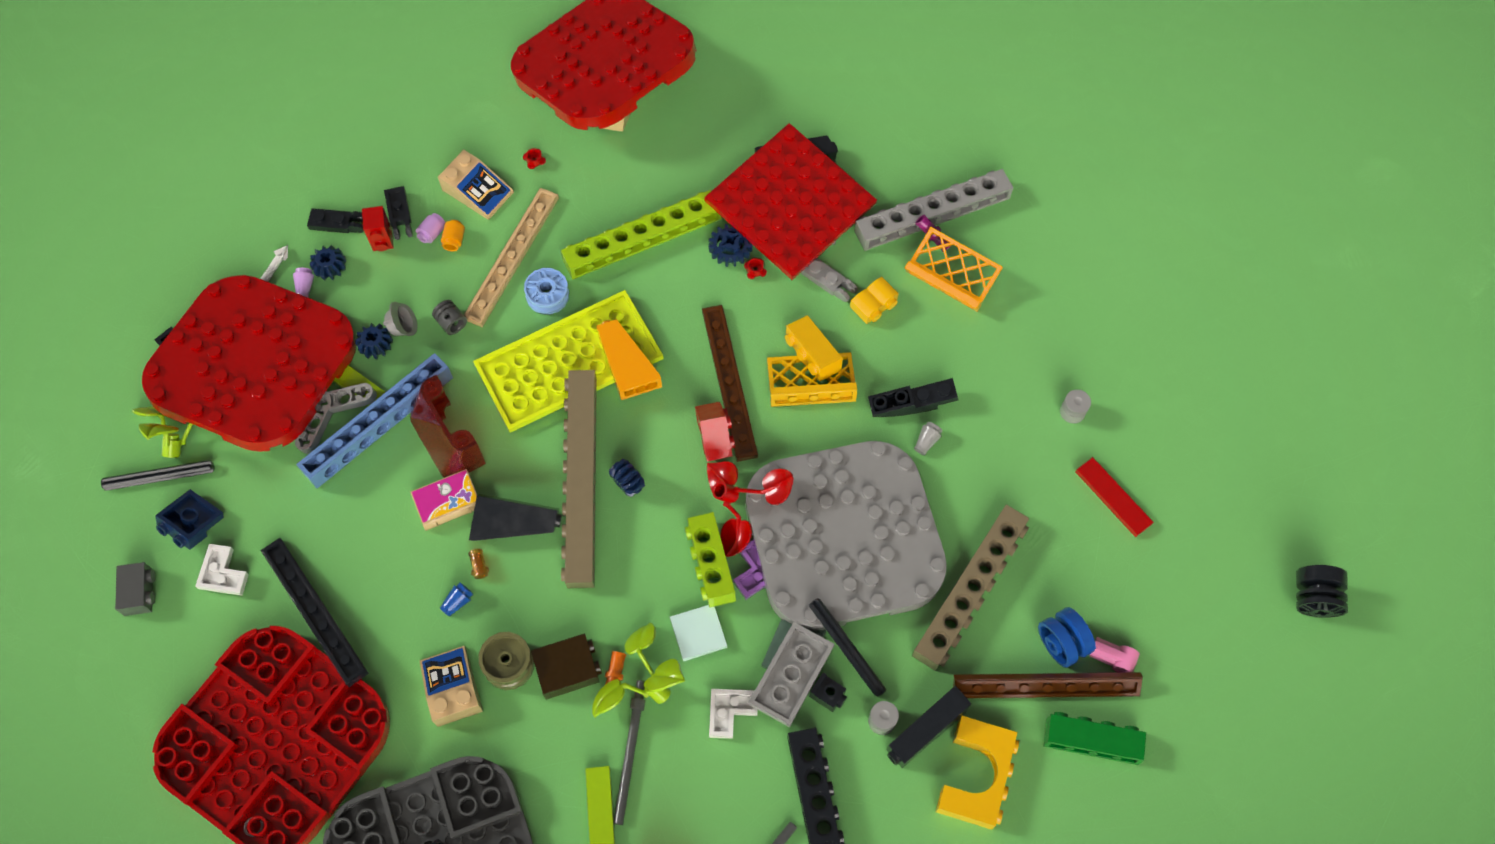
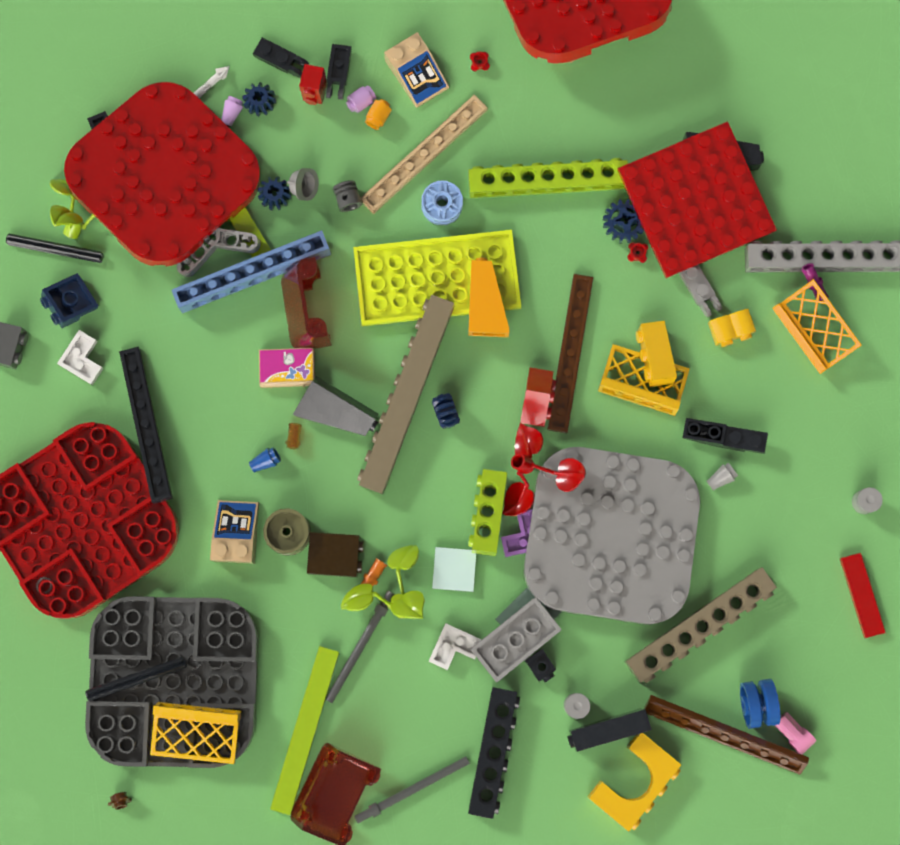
camera: 25 degrees right, 15 degrees up
(847, 647) = (571, 636): black axle -> none
(1094, 738) = (745, 795): green brick -> none

